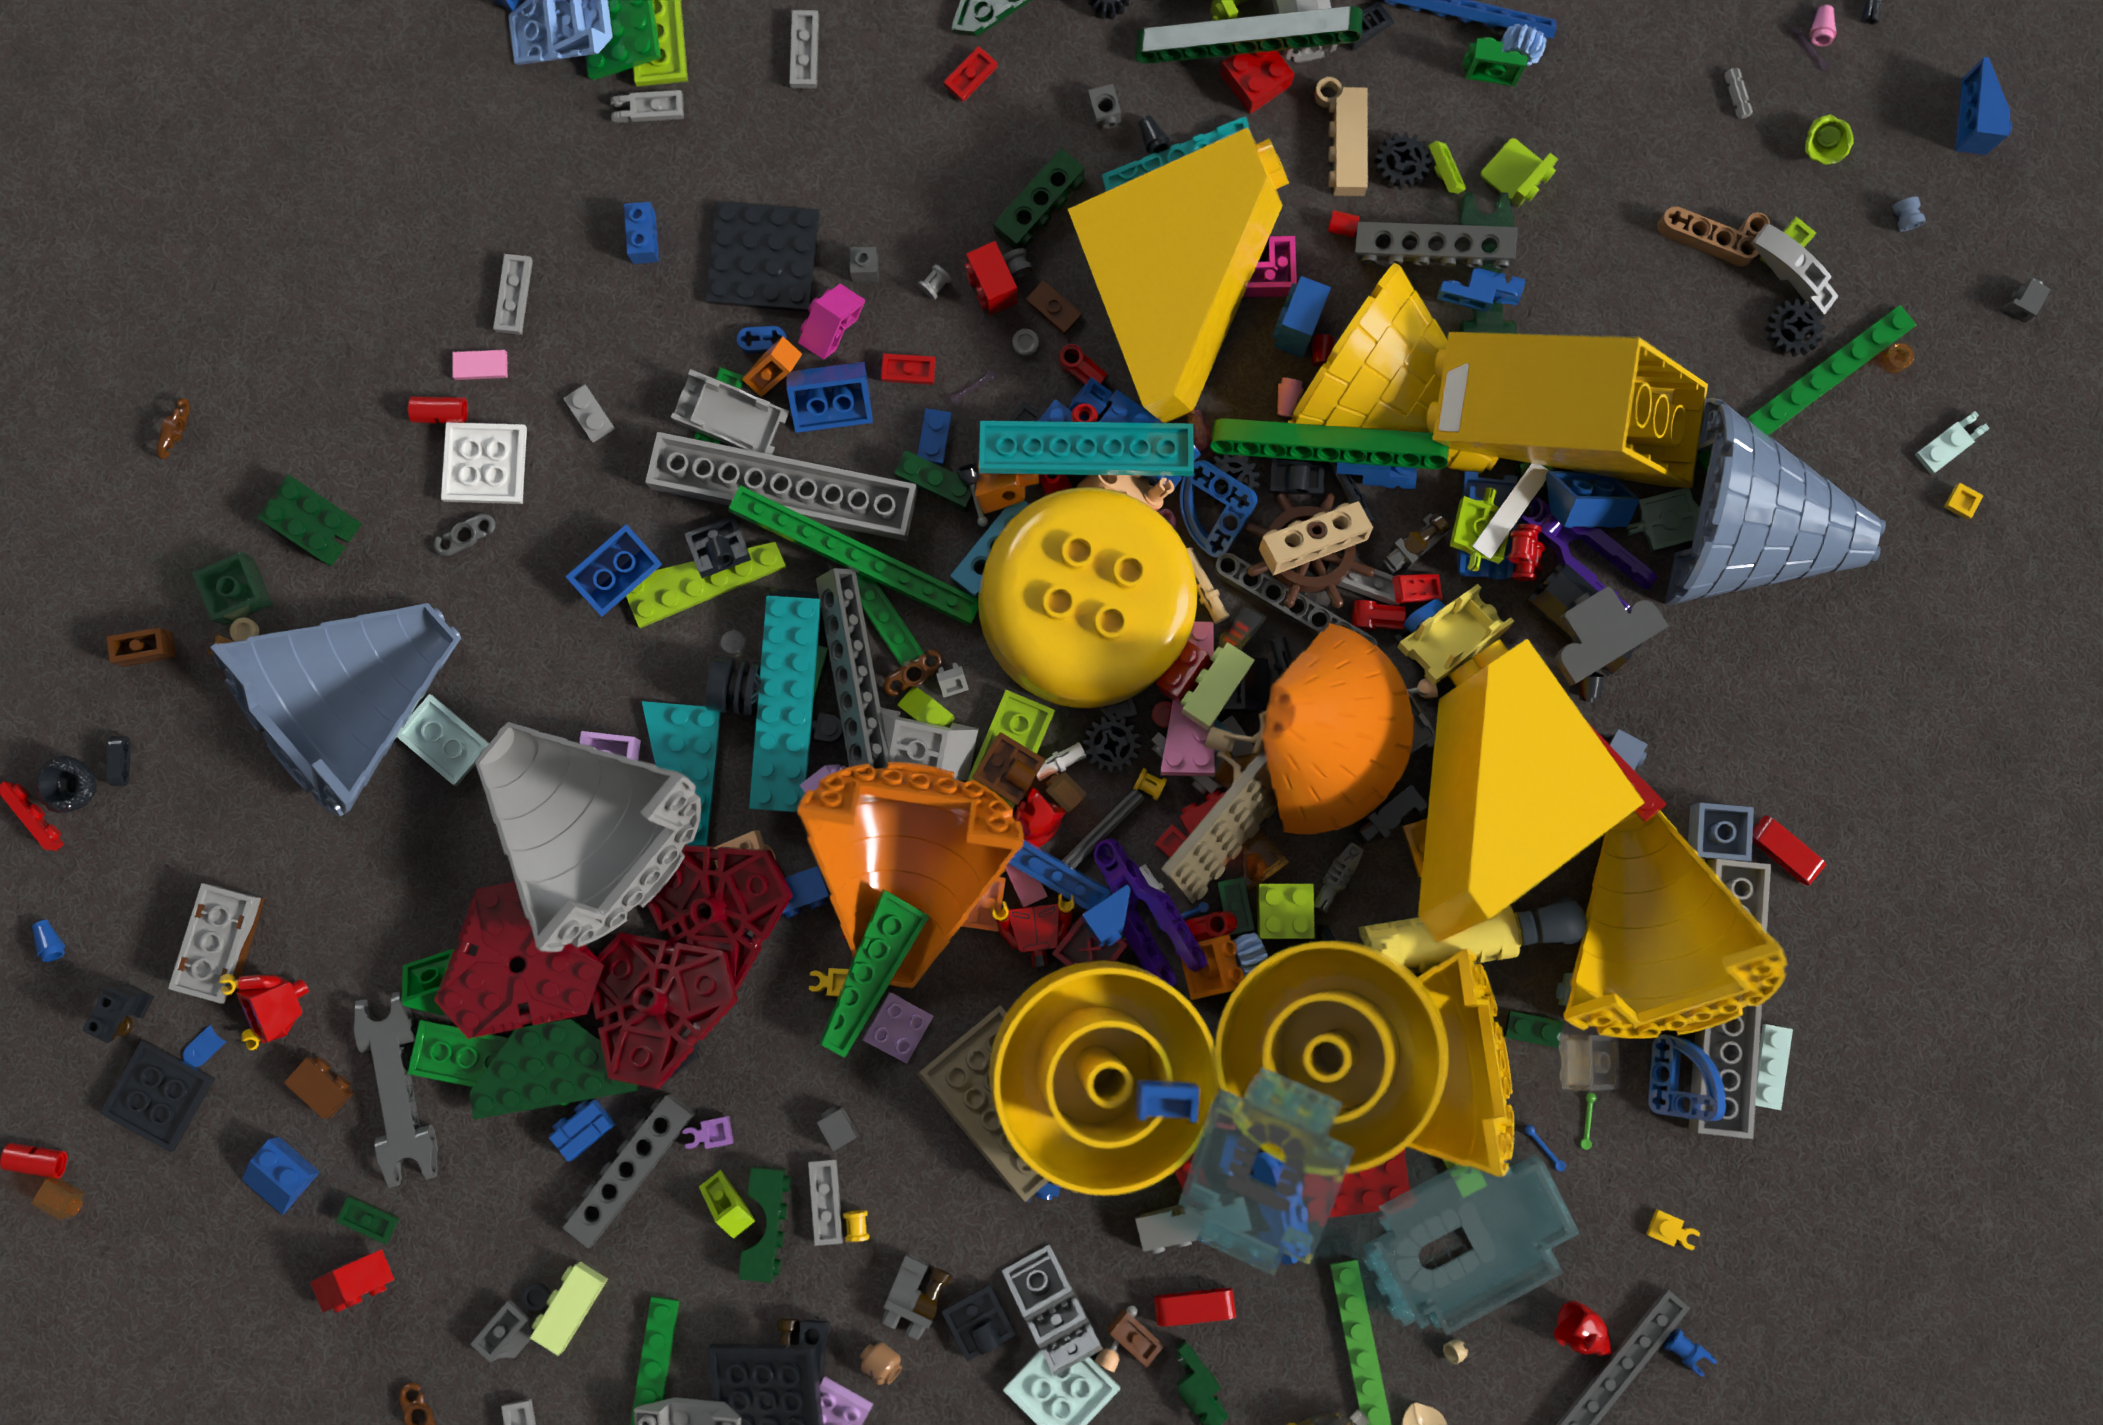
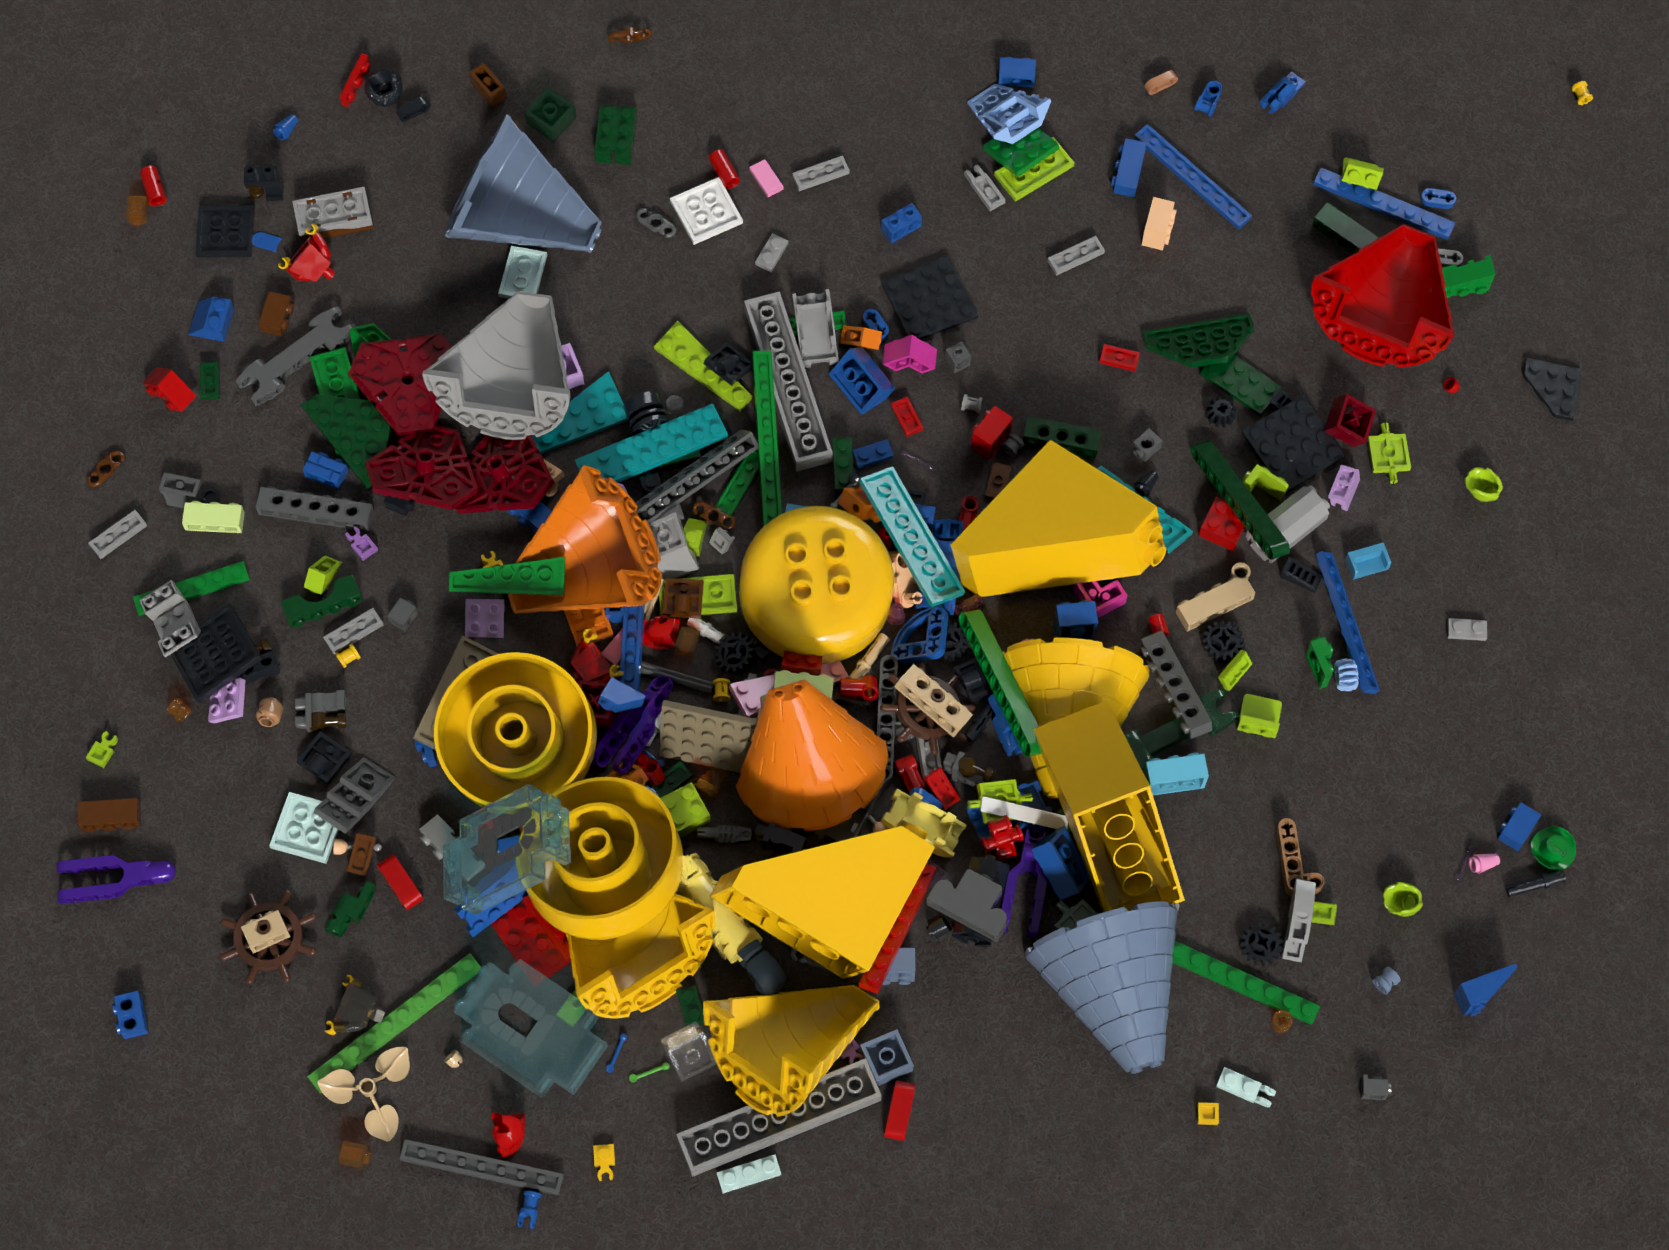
camera: 60 degrees right, 15 degrees down
(243, 628) = (531, 132): tan tile -> none
(614, 570) = (681, 312): blue slope -> none
(1025, 342) = (965, 476): light grey tile -> none
(1082, 409) = (934, 523): red plate -> none
(1167, 1099) = (518, 765): blue panel -> none
(1241, 610) = (865, 687): none -> red piece
(1453, 399) = (1064, 724): white sticker -> none
(1482, 289) = (1161, 726): blue plate -> none
(1549, 299) = (1176, 773): none -> medium azure brick
(1673, 1097) = (691, 1110): blue beam -> none
(1738, 93) = (1403, 830): light grey axle -> none

